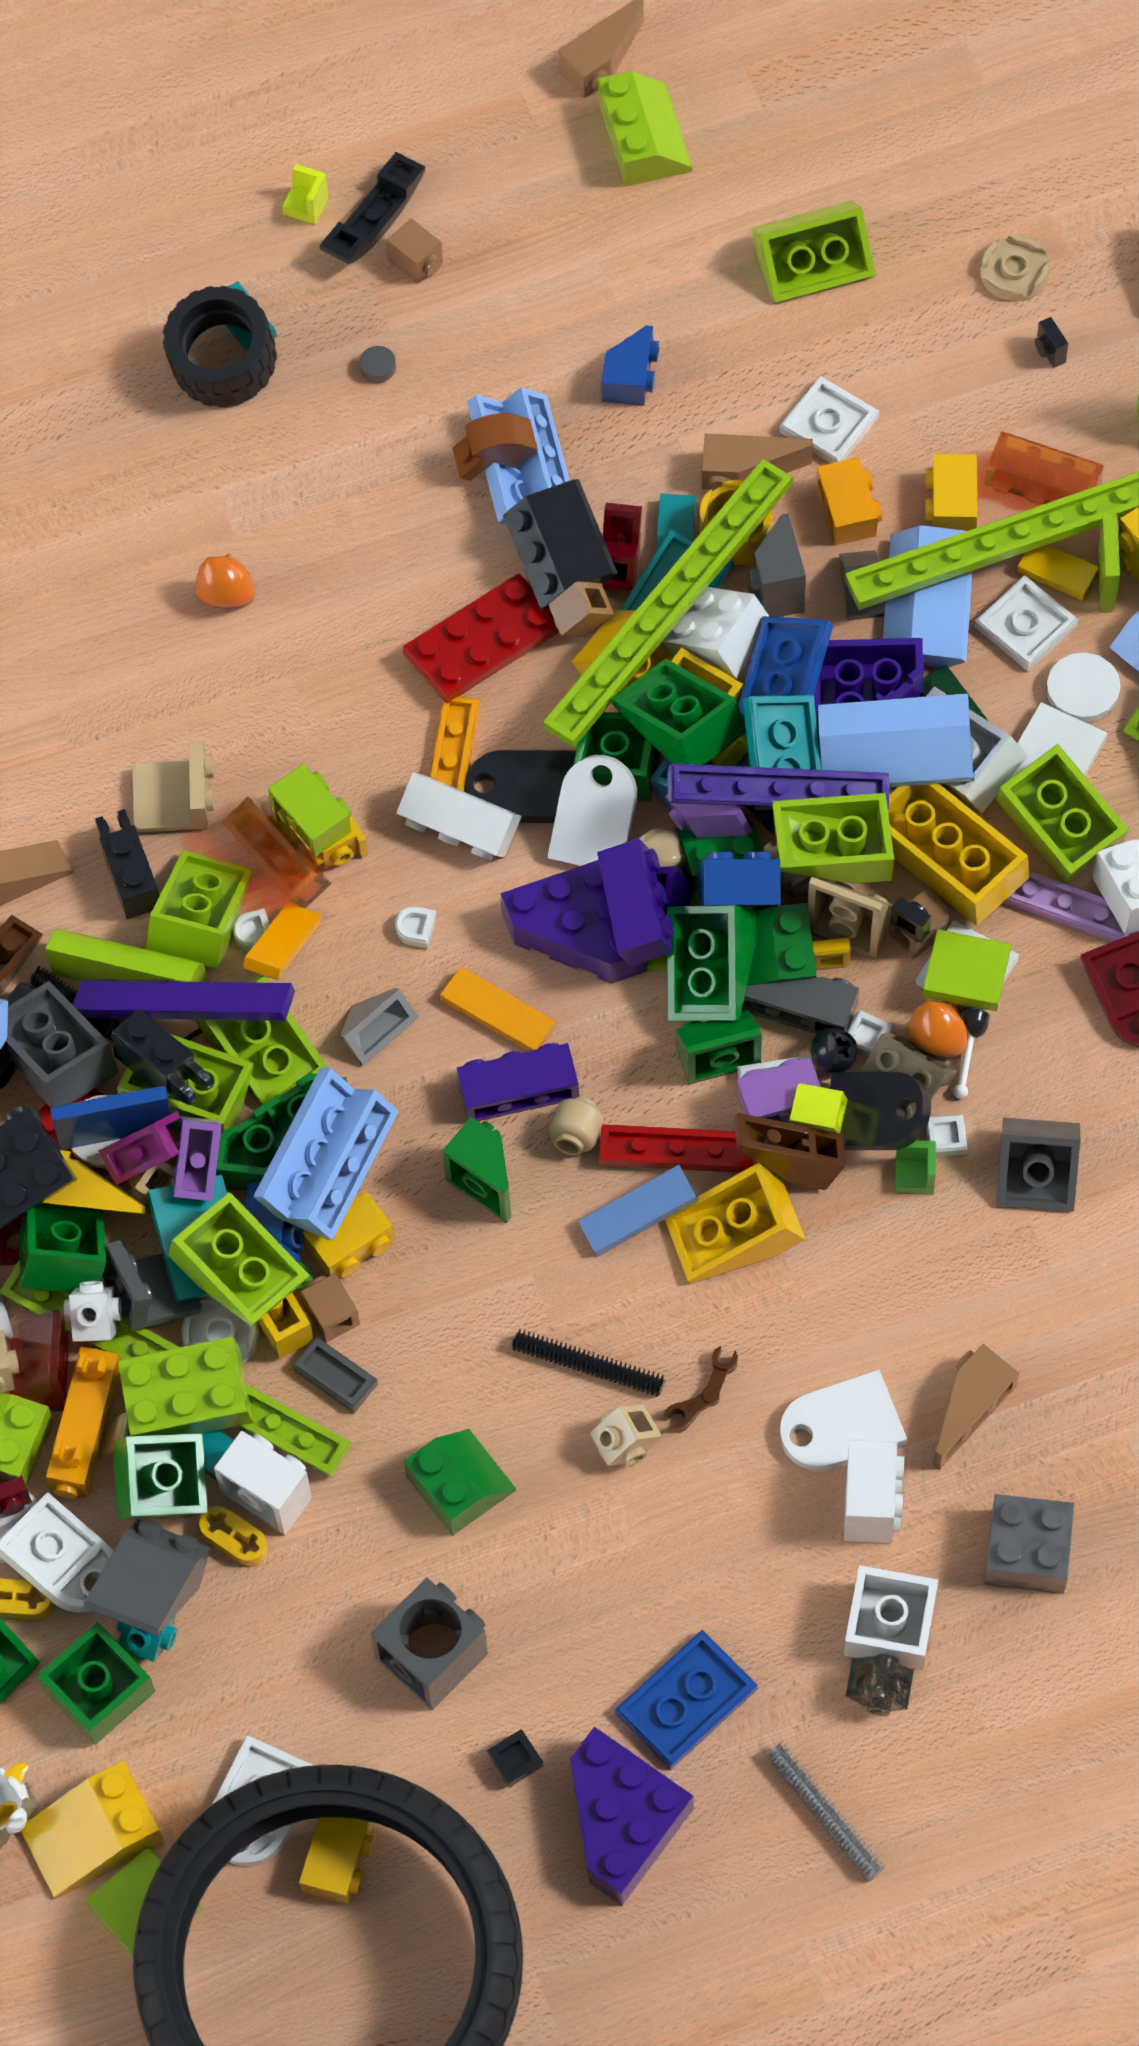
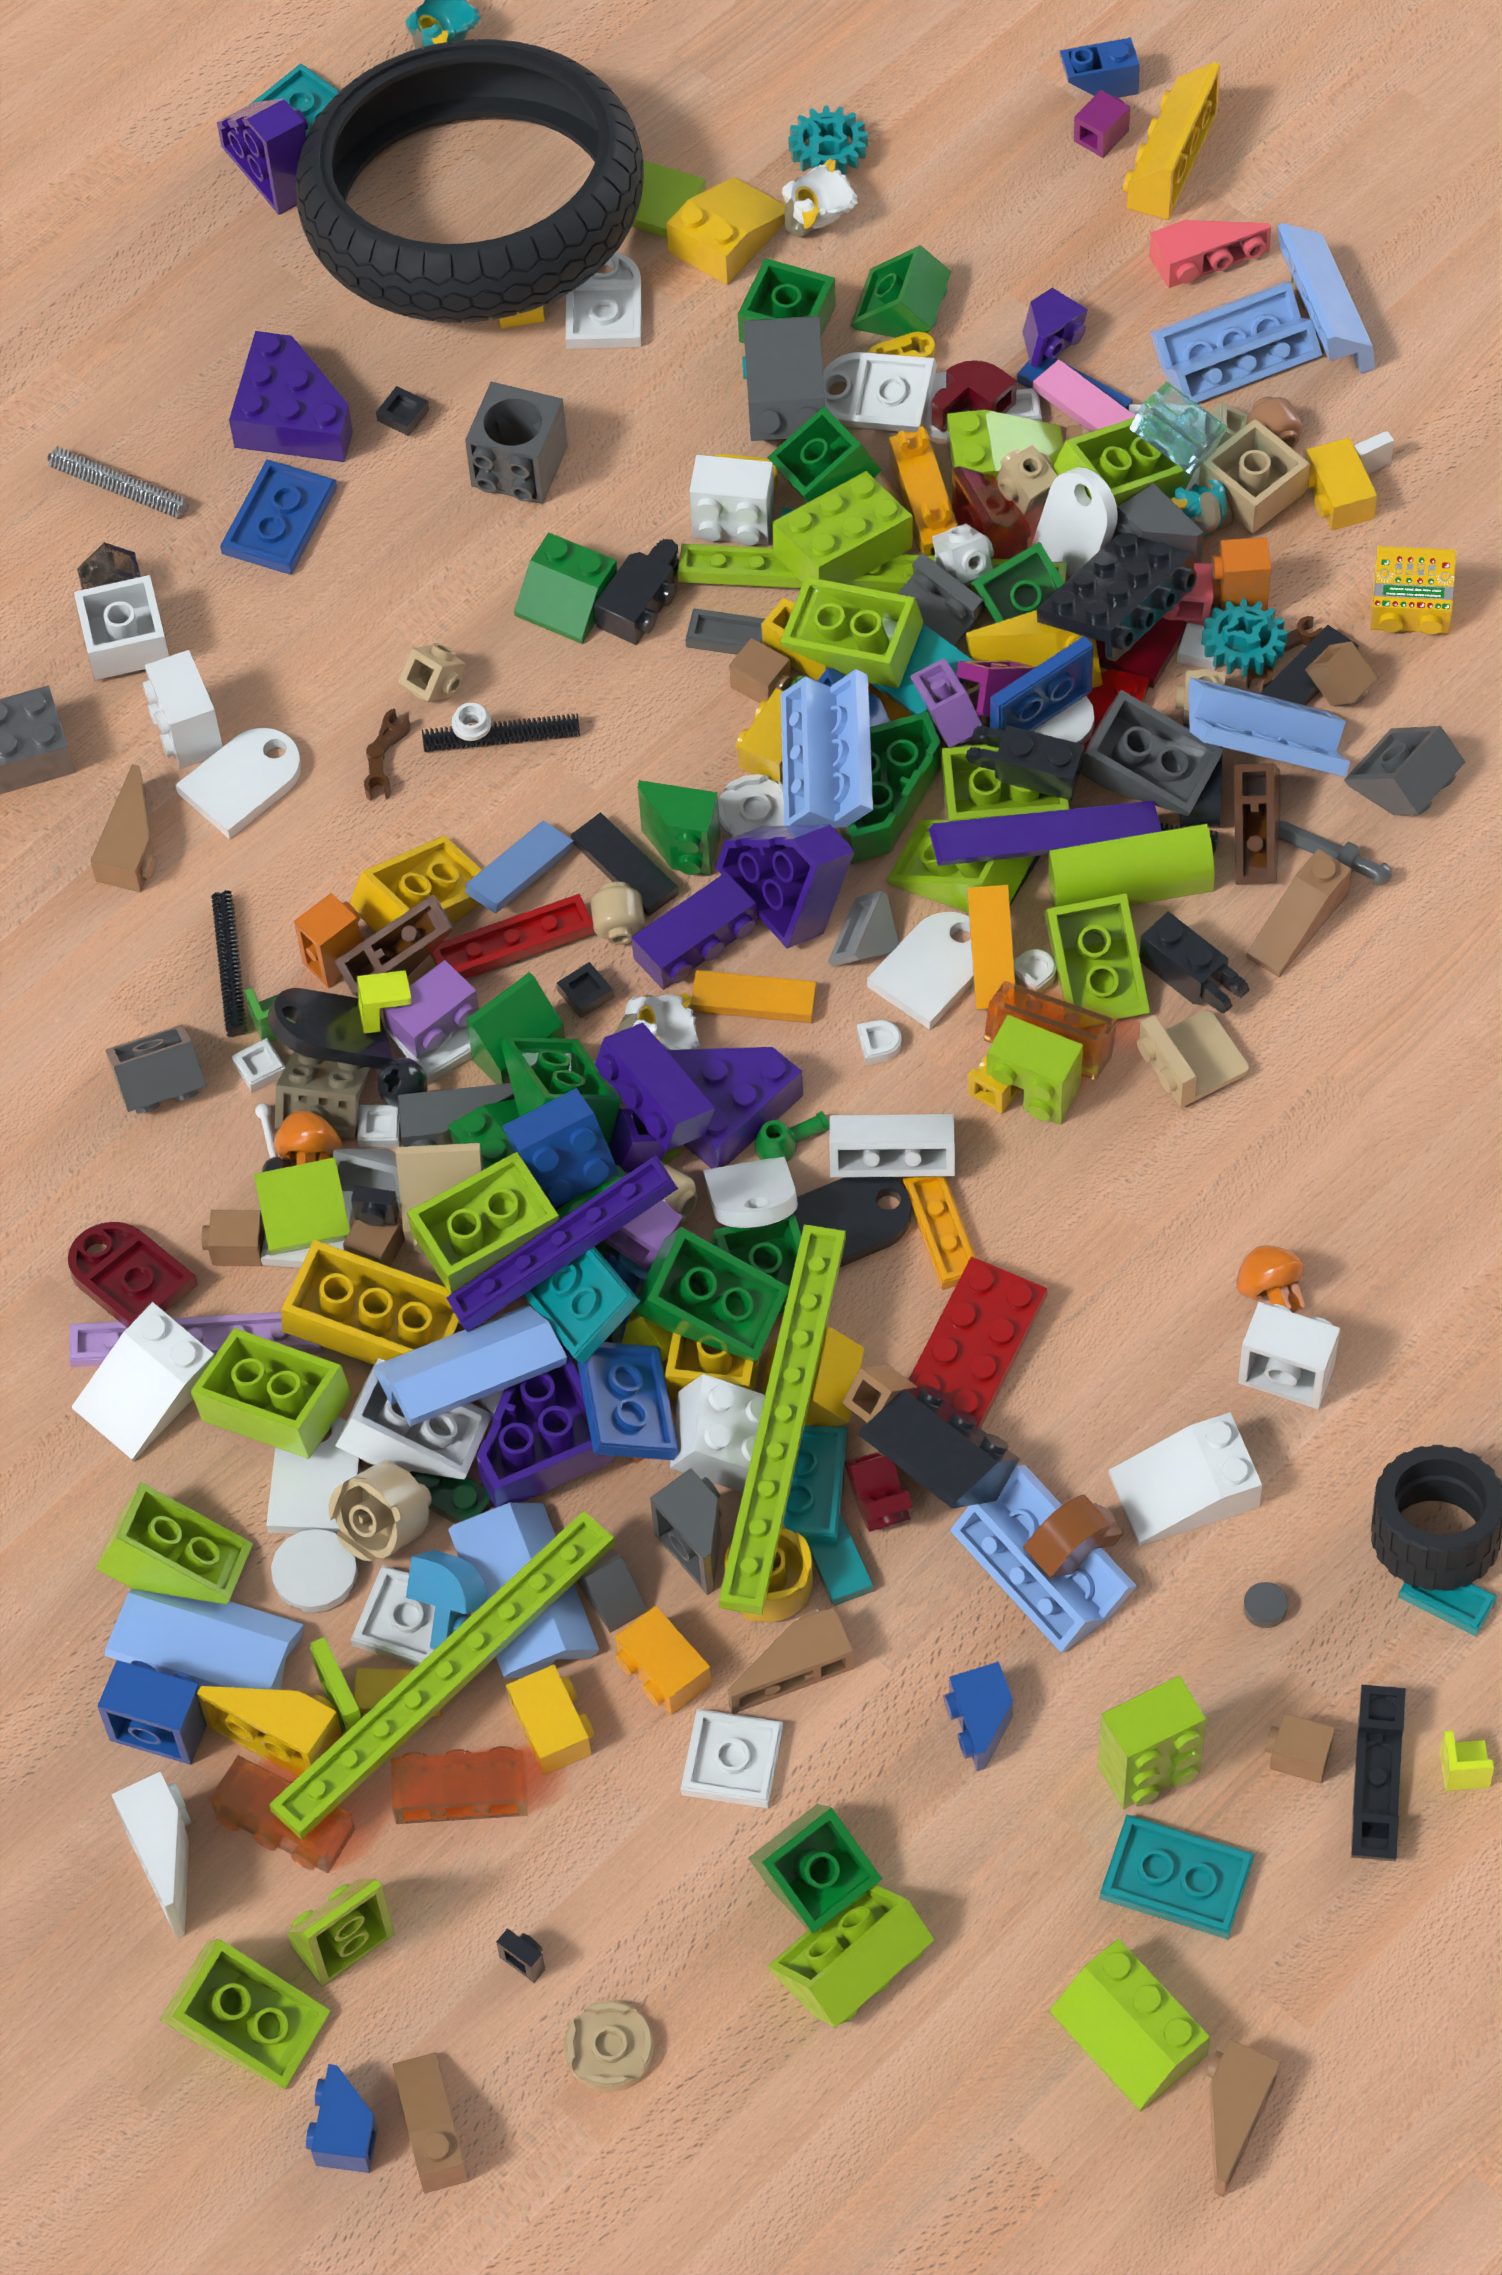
camera: 155 degrees right, 5 degrees down
(252, 509) = (1288, 1354): none -> white brick
(339, 971) = (927, 969): none -> white tile
(381, 467) = (1187, 1481): none -> white slope
(388, 1442) = (638, 592): none -> black hinge
(405, 1184) = (750, 804): none -> white tile
(416, 1071) = (789, 875): none -> dark purple brick
(526, 266) = (1151, 1743): none -> lime brick
(532, 874) = (786, 1143): none -> green bar
(544, 1183) = (624, 862): none -> black tile
(552, 214) = (1177, 1876): none -> teal tile
(595, 1001) = (665, 1017): none -> white hair
(614, 1353) = (468, 714): none -> white plate
(637, 1073) = (585, 990): none -> black plate
(811, 312) = (815, 1867): none -> green slope
(838, 1197) = (327, 934): none -> orange brick
(888, 989) = (367, 1168): none -> light grey slope
(932, 1242) = (229, 963): none -> black axle
(990, 600) = (448, 1585): none -> dark azure brick
(1015, 684) = (380, 1511): none -> tan brick
(1033, 977) = (234, 1237): none -> medium nougat brick

